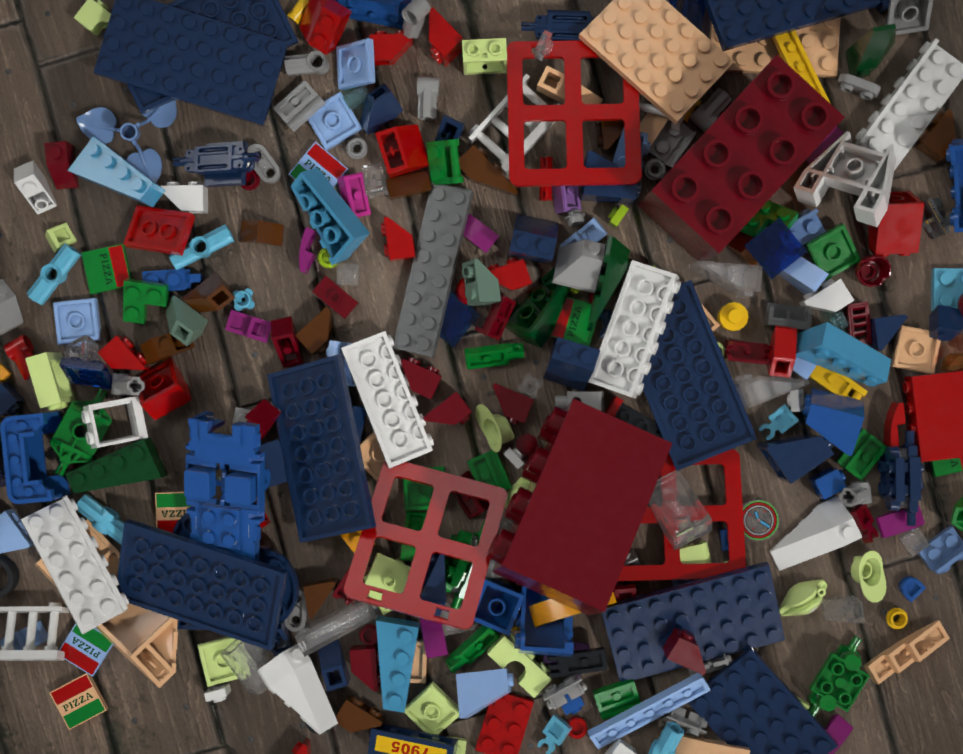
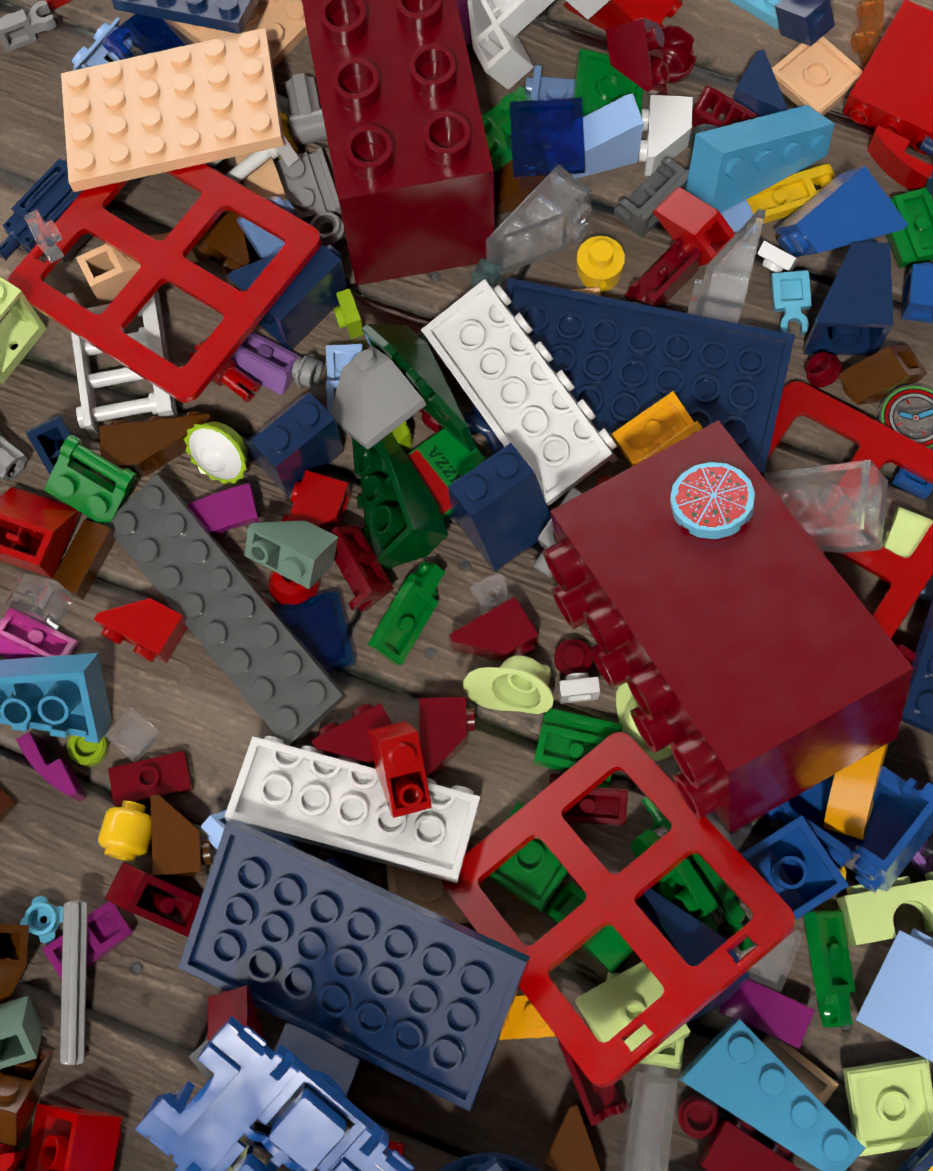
camera: 50 degrees left, 15 degrees down
(228, 335) = (73, 982): none -> light grey axle
(304, 307) = (126, 831): none -> yellow head
(418, 408) = (400, 768): none -> red slope
(503, 209) = (217, 451): none -> white piece
(627, 469) = (712, 500): none -> tile
(658, 413) = (655, 430): none -> light orange slope
(678, 268) = (488, 271): none -> clear light blue piece
(752, 461) = (823, 369): none -> dark red plate
(769, 490) = (880, 373): none -> reddish brown slope
(855, 259) = (638, 54): none -> dark red slope

